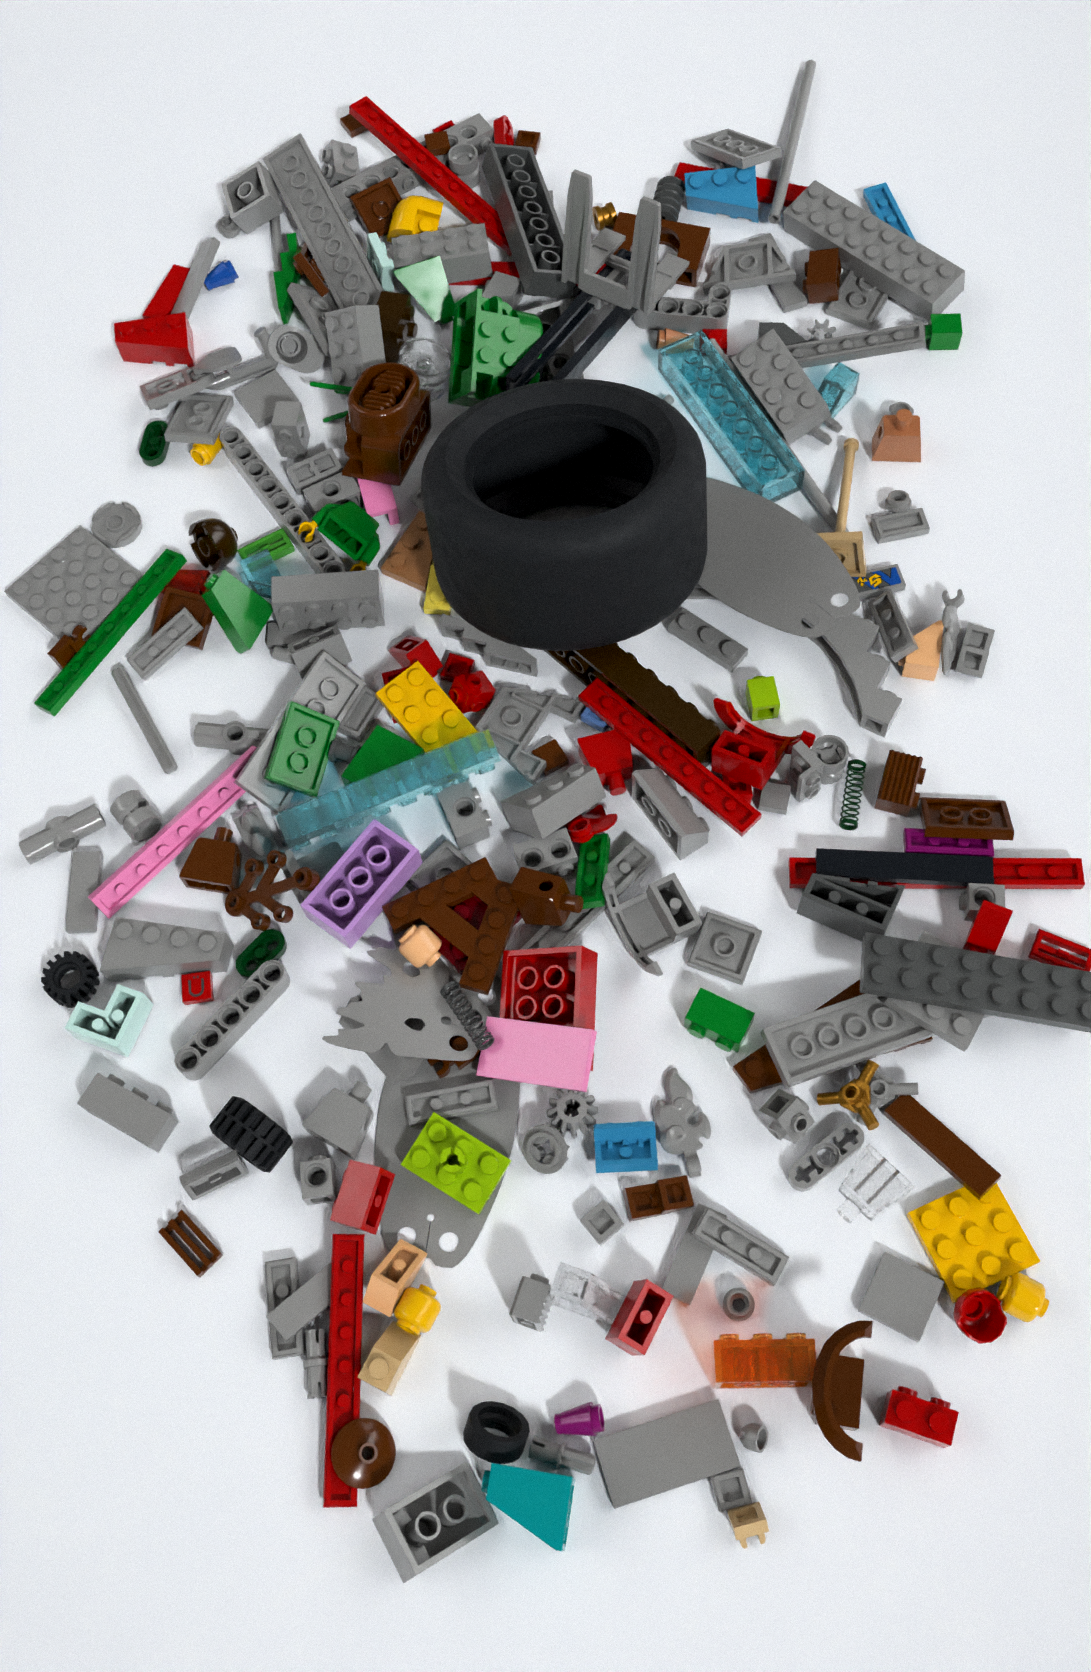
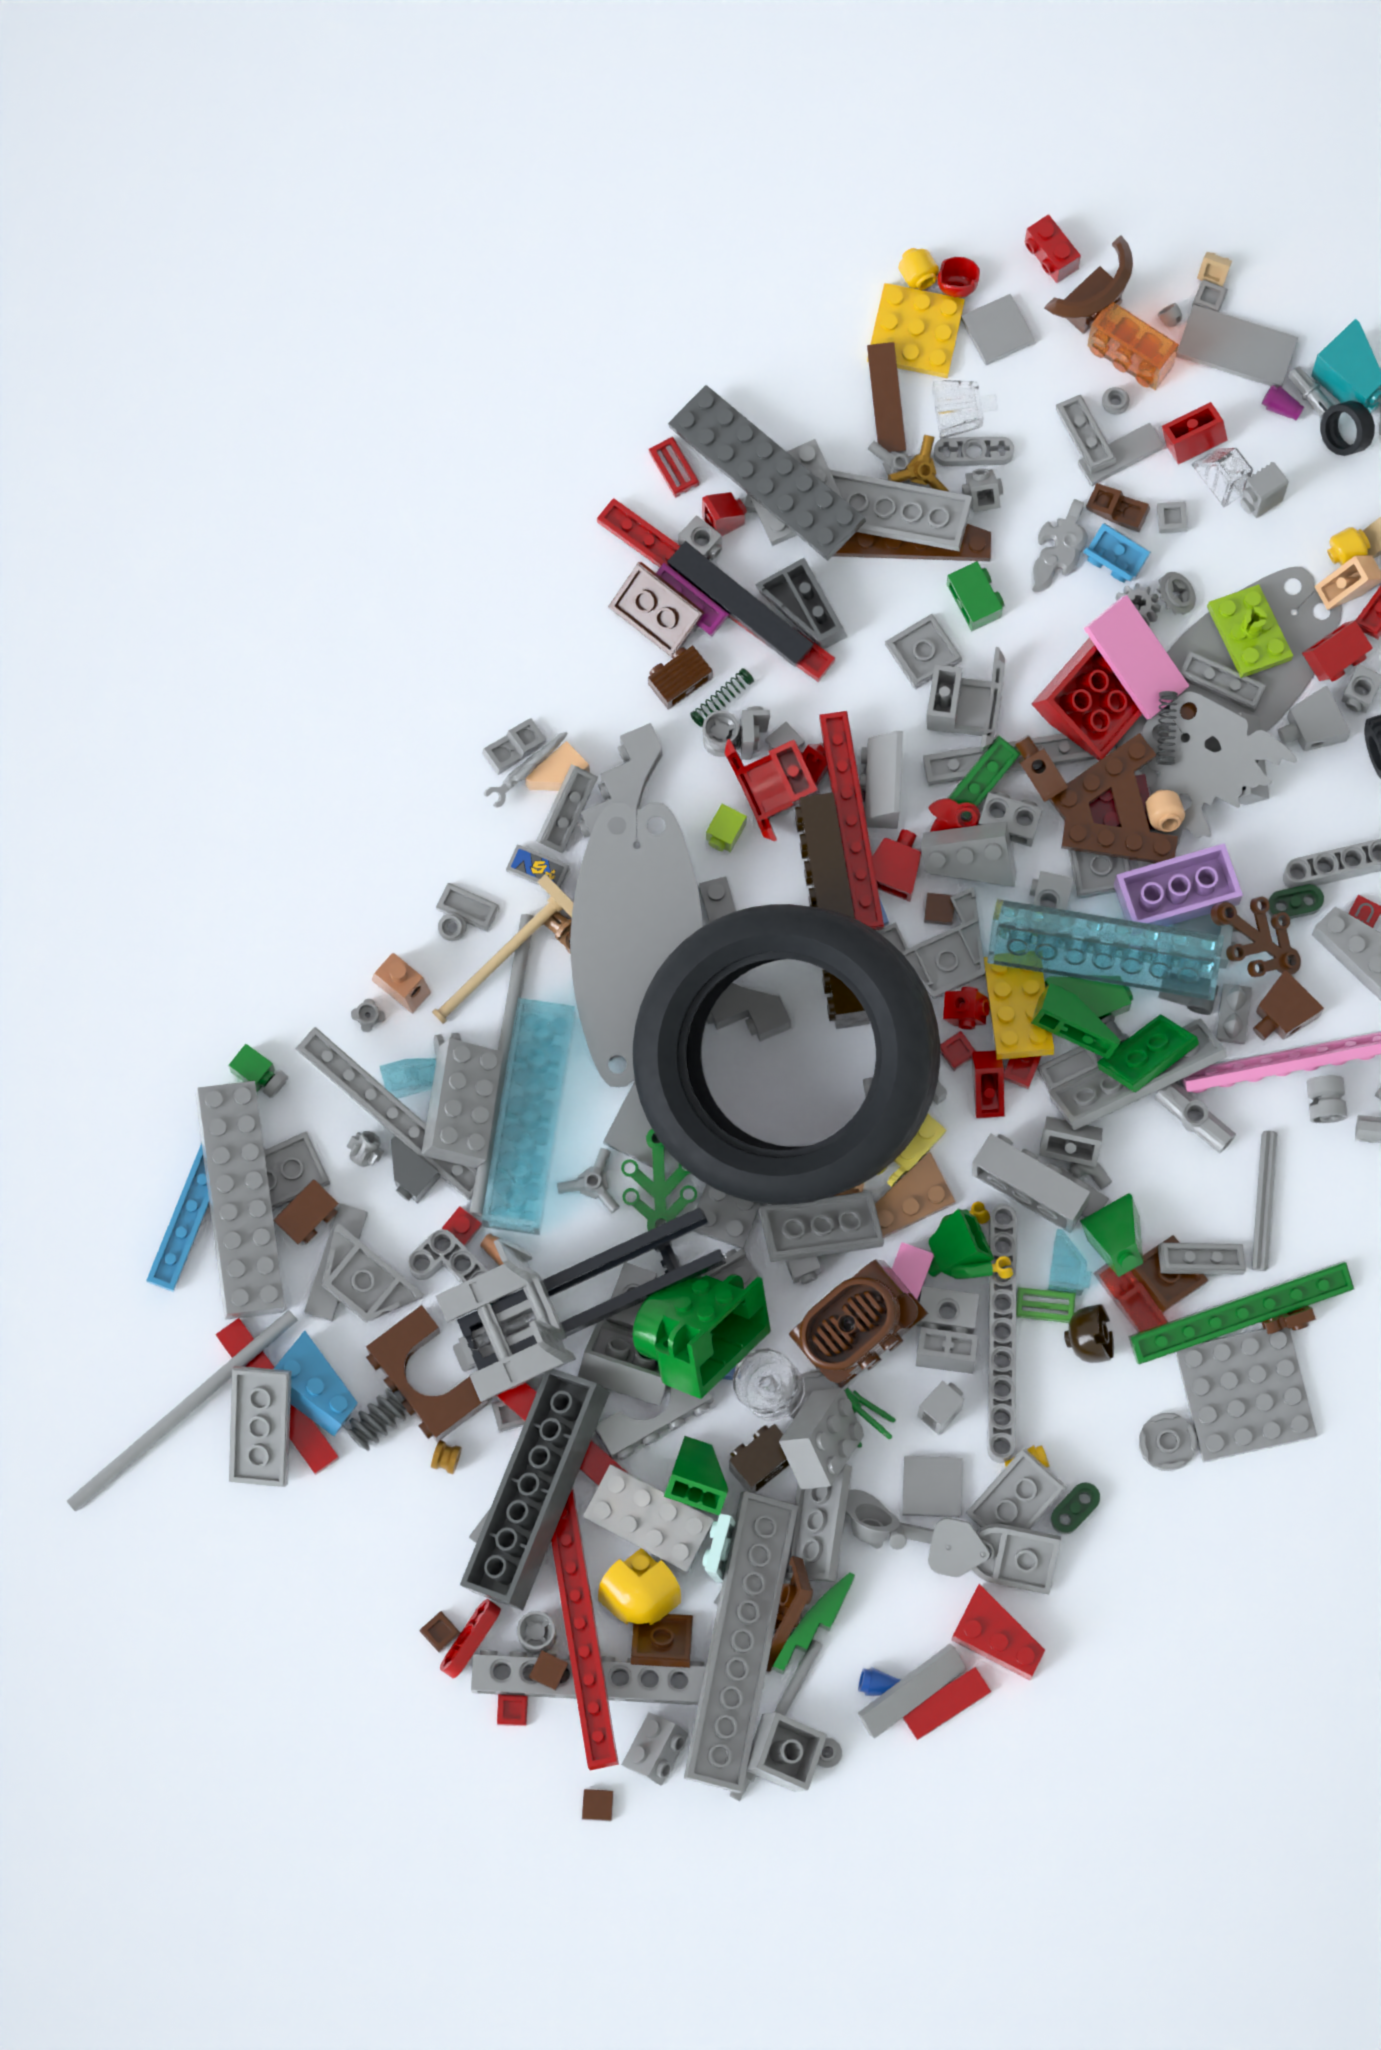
camera: 150 degrees left, 10 degrees up
(385, 718) = (1072, 1020): none -> green slope

